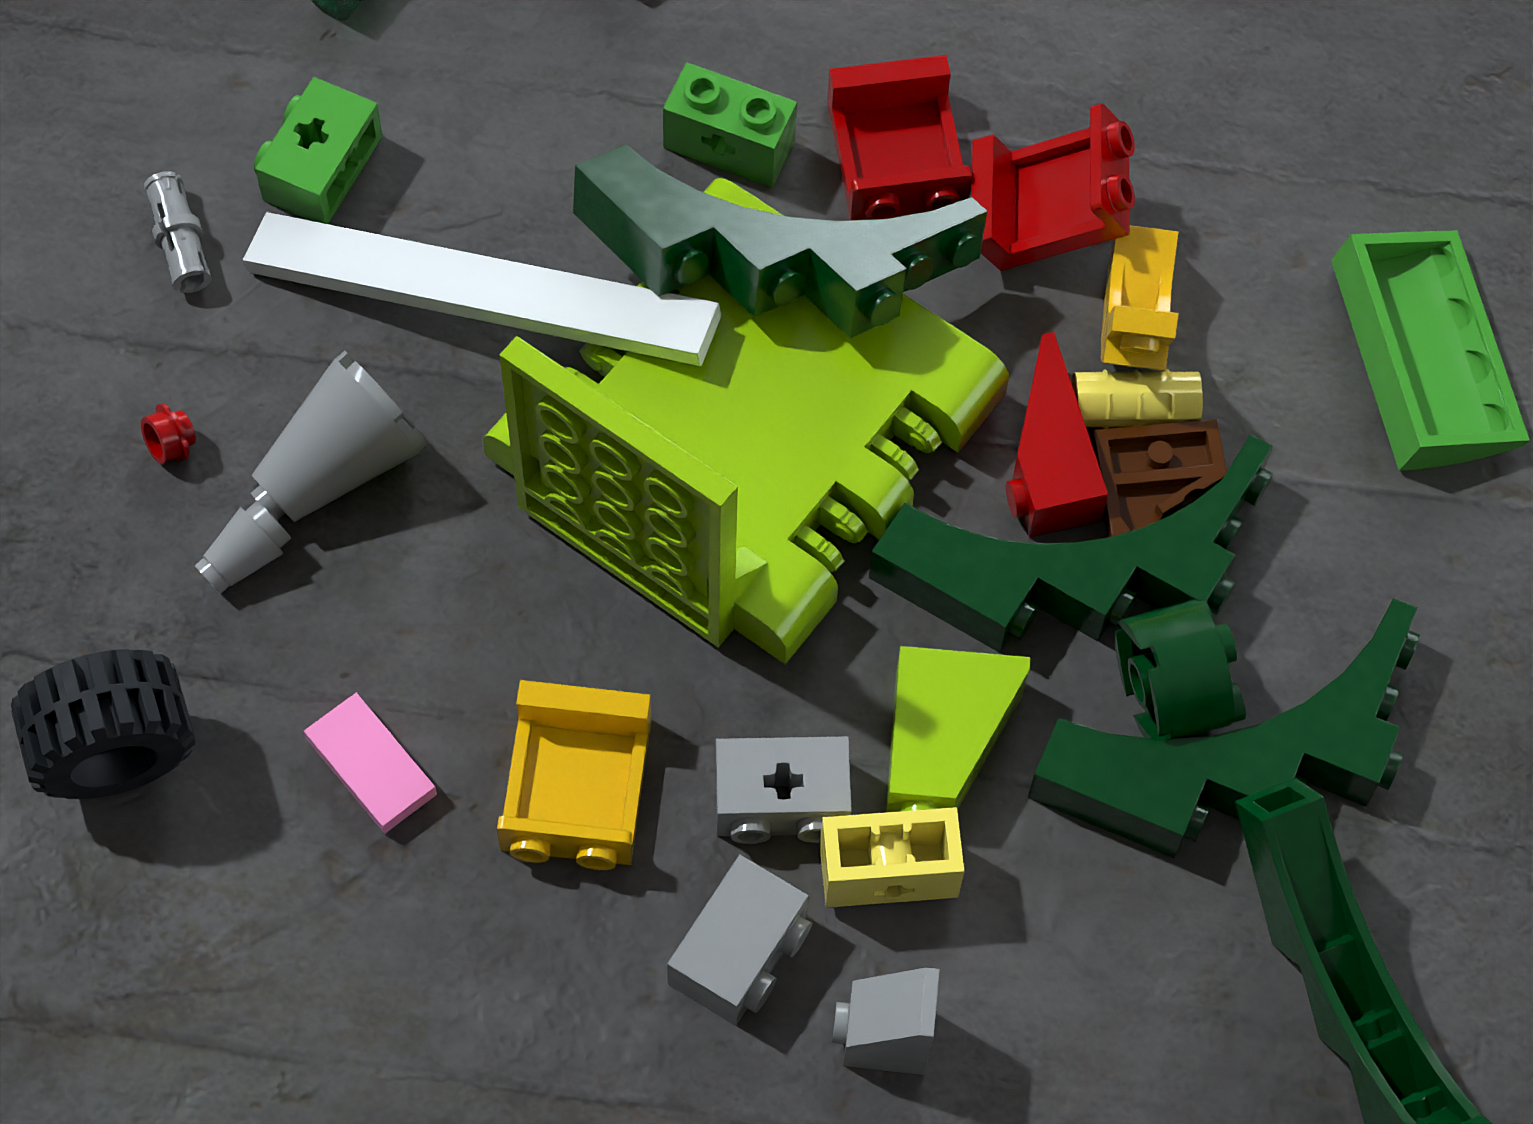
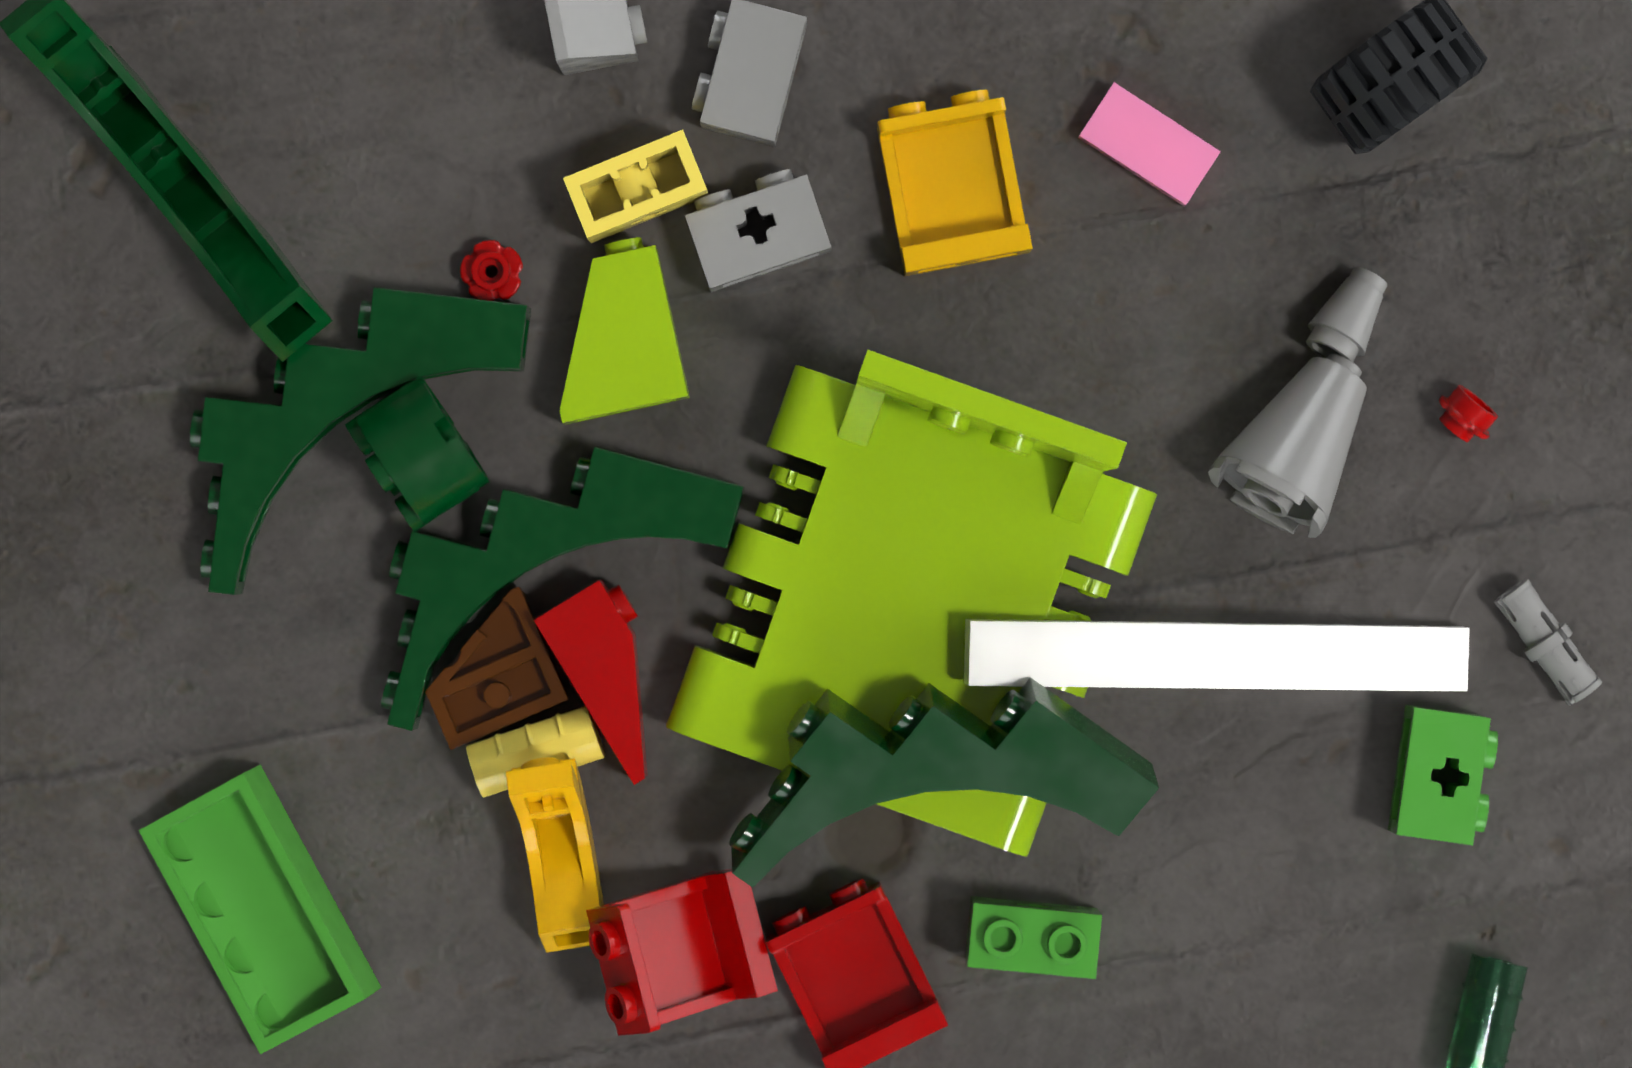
camera: 165 degrees right, 25 degrees up
(1052, 850) = (474, 268): none -> red plate

